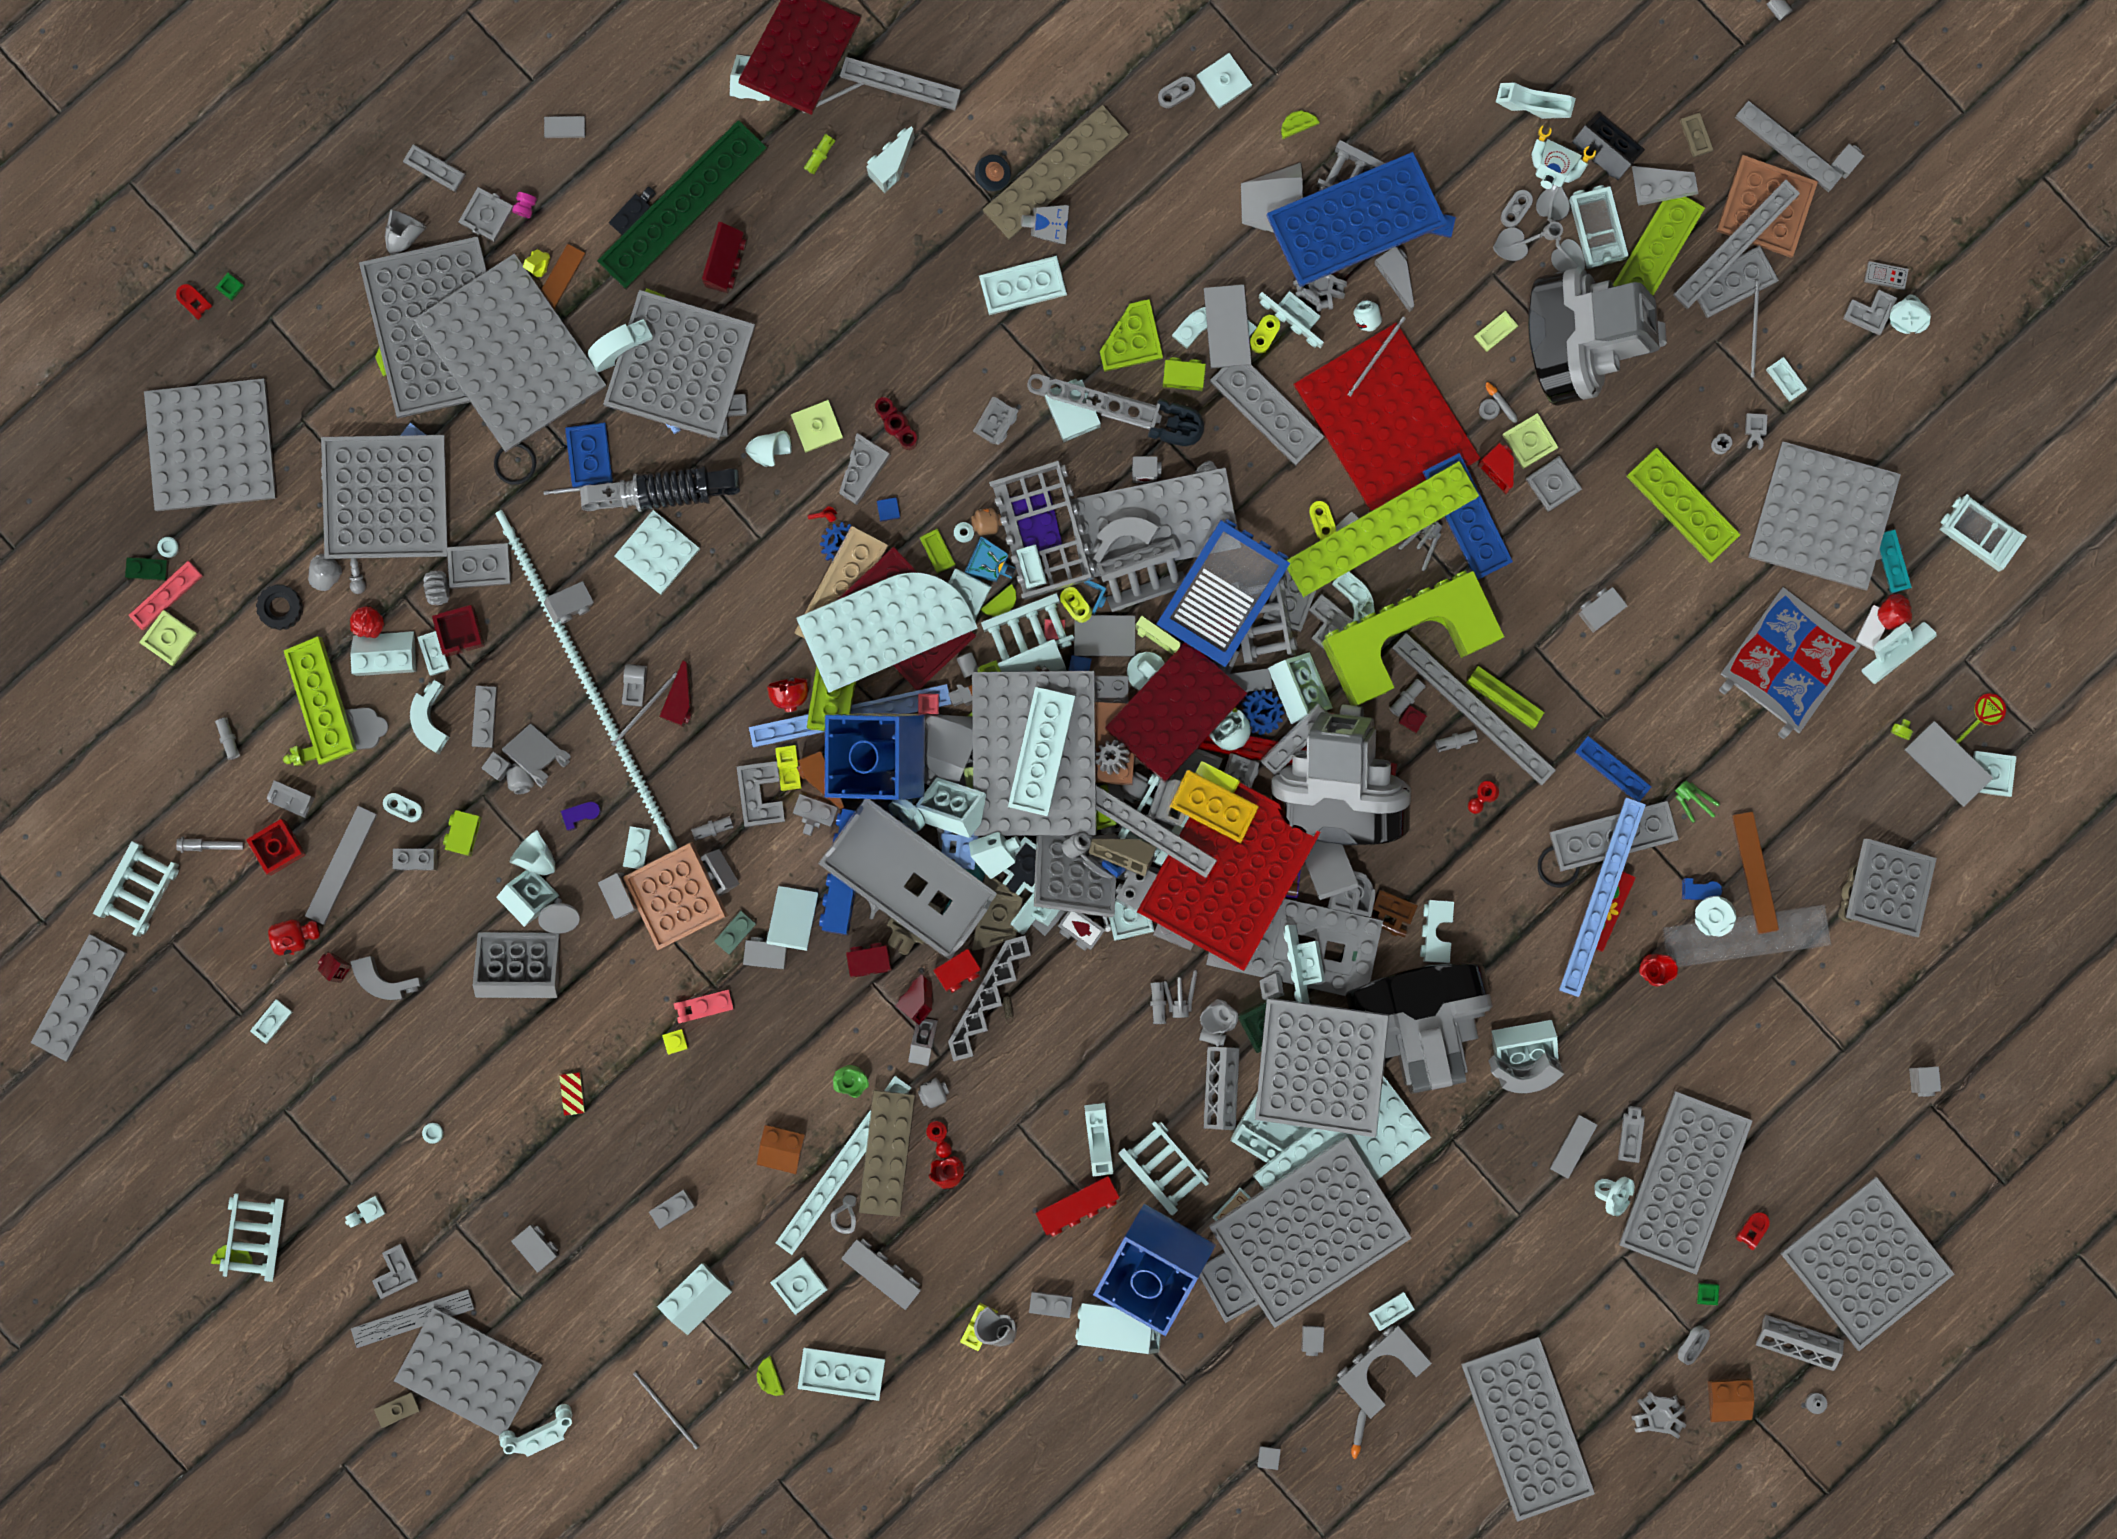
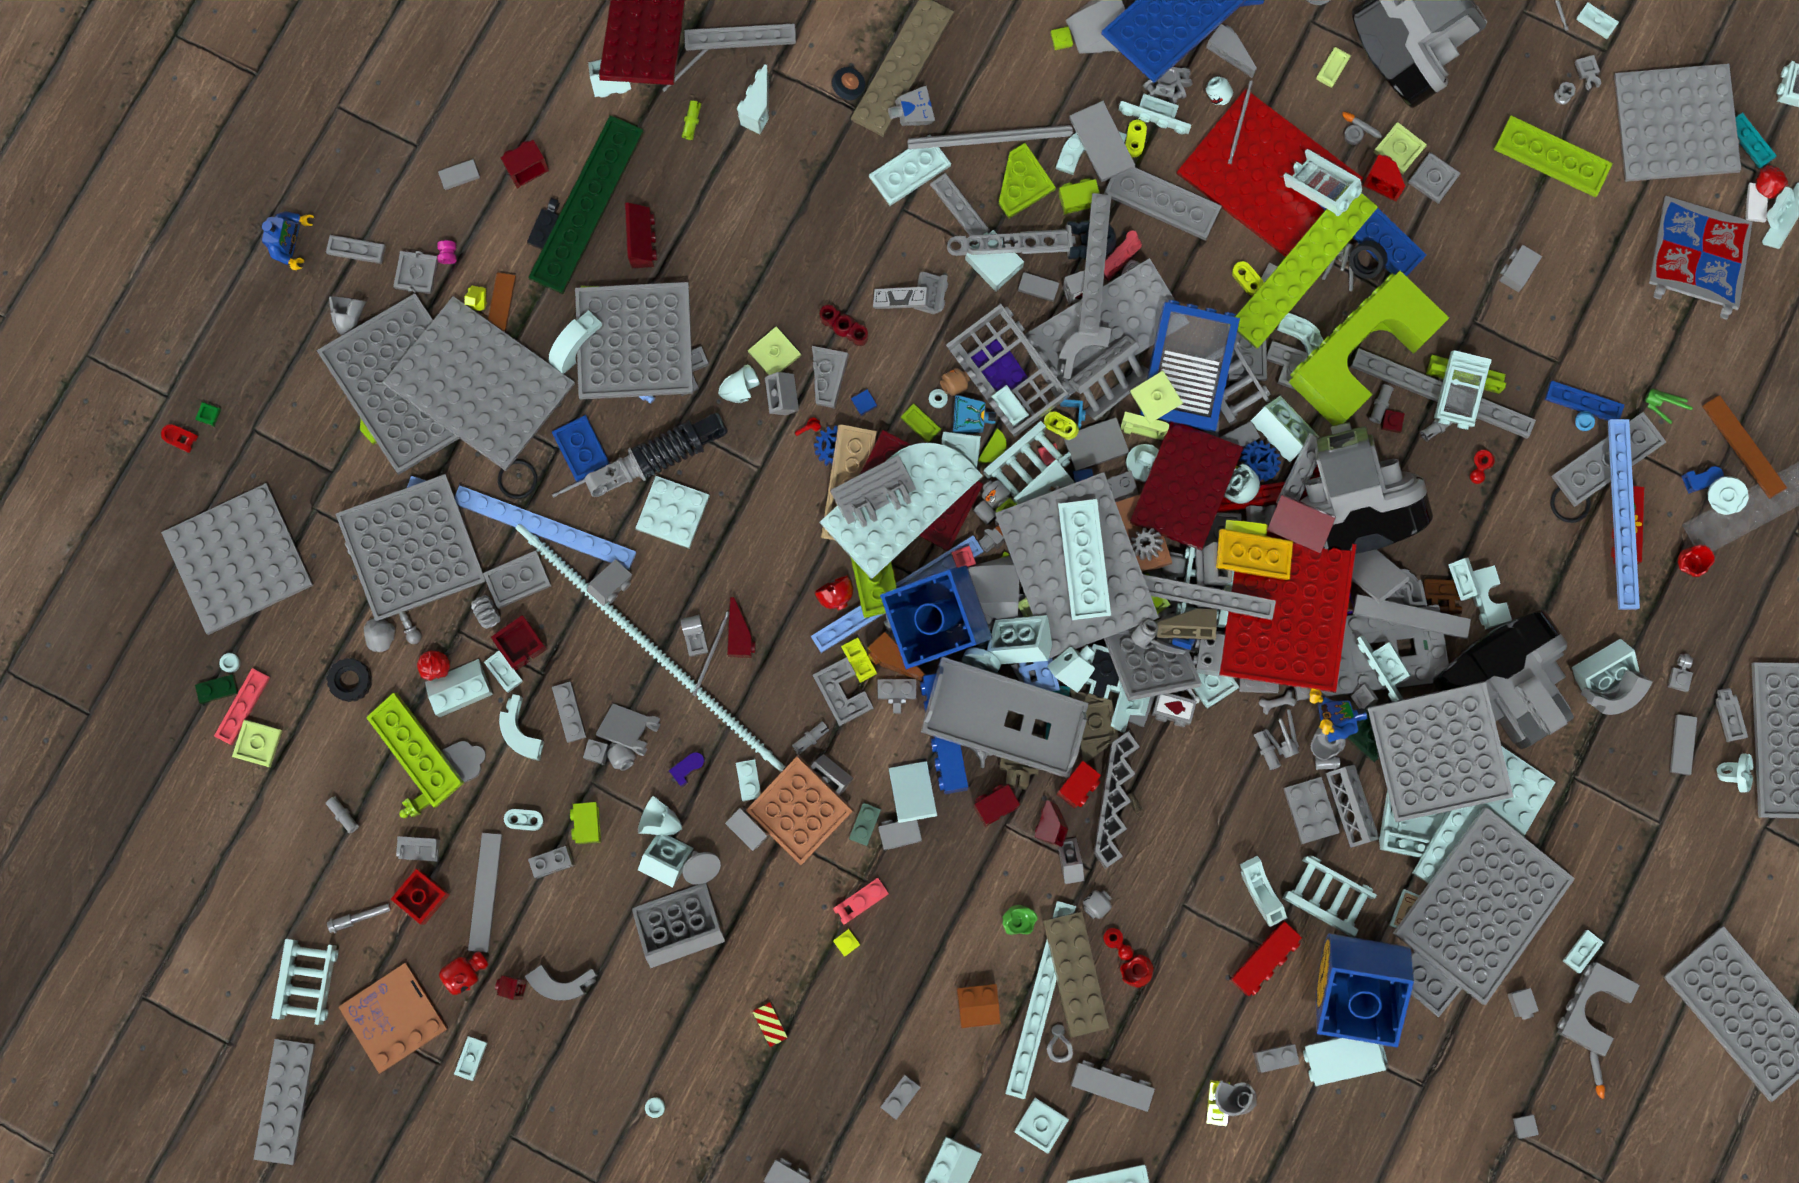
camera: 20 degrees left, 5 degrees down
(210, 955) = (393, 1018): none -> nougat plate
(364, 128) = (281, 235): none -> blue torso
(524, 522) = (544, 527): none -> light blue plate
(633, 141) = (524, 163): none -> dark red piece
(808, 469) = (781, 393): none -> light grey brick
(860, 603) = (873, 488): none -> light grey hinge
(963, 416) = (901, 297): none -> light grey tile
(984, 650) = (995, 493): none -> light grey head
(1059, 342) = (959, 206): none -> light grey tile
(1107, 453) = (1038, 287): none -> light grey tile
(1116, 280) = (990, 137): none -> light grey axle
(1167, 454) = (1095, 264): none -> light grey plate
(1176, 612) = (1156, 397): none -> yellowish green plate
(1179, 1078) = (1311, 810): none -> light grey plate
(1197, 960) = (1268, 704): none -> light grey piece
(1202, 451) = (1122, 254): none -> coral plate
(1229, 201) = (1061, 38): none -> lime plate
(1235, 996) = (1336, 717): none -> torso
(1272, 792) = (1301, 523): none -> dark red tile
(1350, 924) = (1412, 616): none -> light grey tile
(1418, 904) = (1464, 579): none -> light aqua plate
(1433, 453) = (1324, 183): none -> light aqua door
(1439, 551) = (1374, 247): none -> black tyre
(1489, 714) = (1462, 389): none -> light aqua door
(1597, 1080) = (1680, 678): none -> light grey plate
(1605, 788) = (1585, 421): none -> dark azure tile

